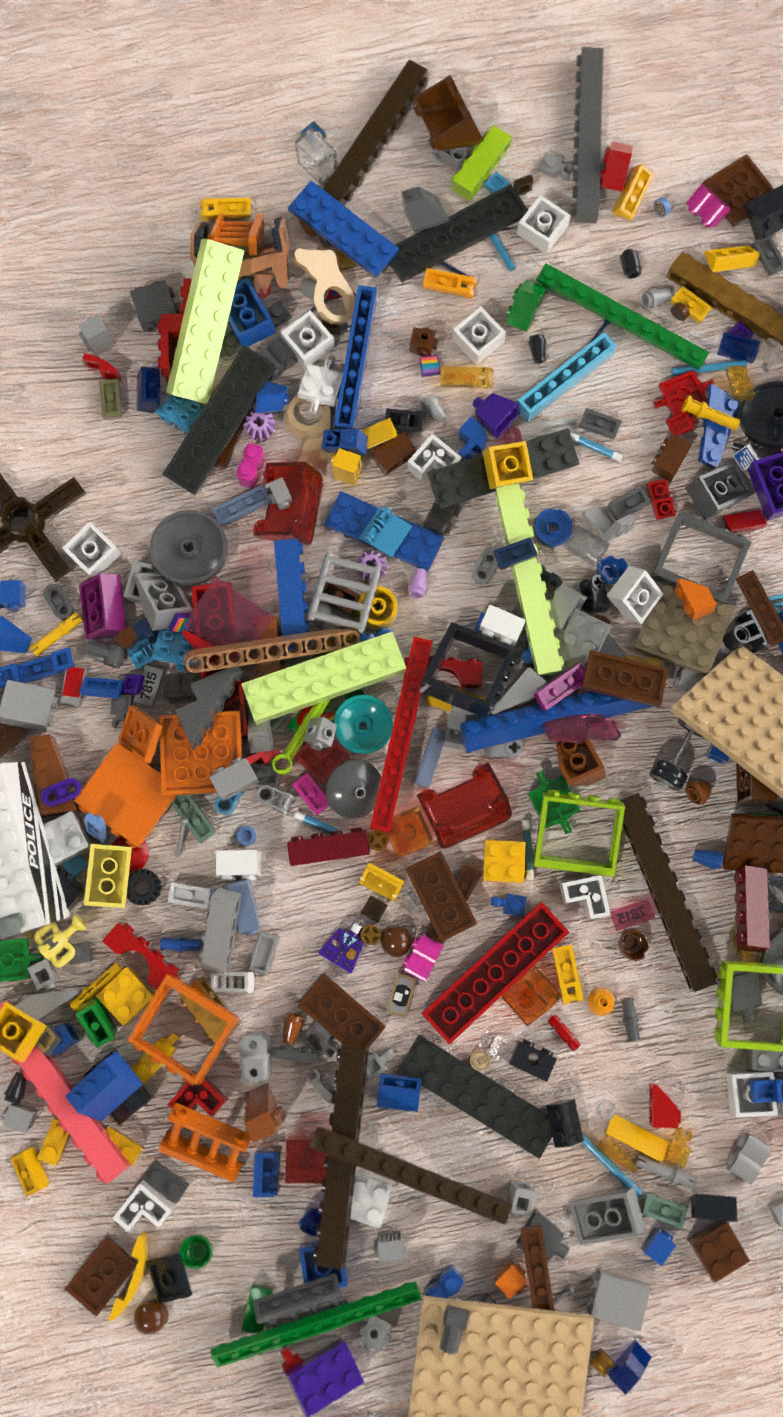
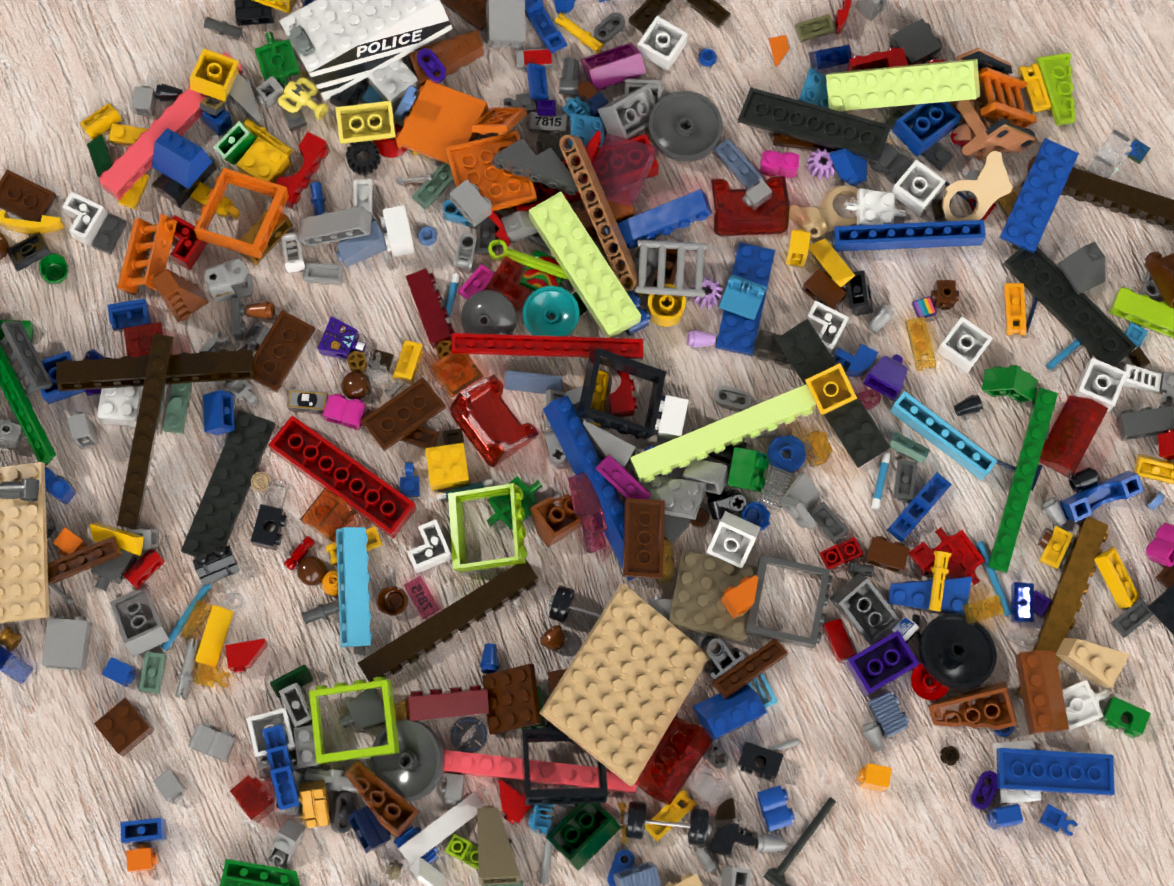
camera: 75 degrees right, 5 degrees down
(72, 1177) = (100, 155): none -> dark green slope
(116, 511) = (707, 57): none -> blue plate
(122, 439) = (779, 48): none -> orange sticker
(178, 621) = (611, 129): tile -> none
(220, 185) = (1057, 80): none -> lime wing
(320, 733) = (532, 274): light grey brick -> none
(346, 439) = (820, 240): blue slope -> none
(381, 1137) = (177, 408): none -> sand green plate
(388, 915) = (377, 373): none -> clear plate
(472, 850) = (453, 436): none -> dark brown tile
(511, 1232) = (127, 540): none -> yellow slope
(515, 553) = (742, 411): dark blue plate -> none
(531, 198) = (1143, 372): none -> white slope
(551, 1202) = (144, 568): none -> red bracket
(557, 495) = (817, 448): none -> clear yellow brick
(567, 566) = (748, 469): none -> green slope
(569, 412) = (910, 448): none -> sand green plate
(584, 1023) = (311, 570): none -> reddish brown hair
(585, 260) = (1072, 434): none -> clear red slope
(615, 982) = (353, 587): none -> medium azure brick
(632, 421) = (919, 507): none -> blue slope
(645, 232) = (1116, 488): none -> blue arch
(678, 489) = (863, 569): none -> dark grey pin
(696, 1064) = (299, 675): none -> dark green slope
(714, 1207) = (161, 715): black hinge -> none
(727, 1063) = (296, 705): none -> light grey brick

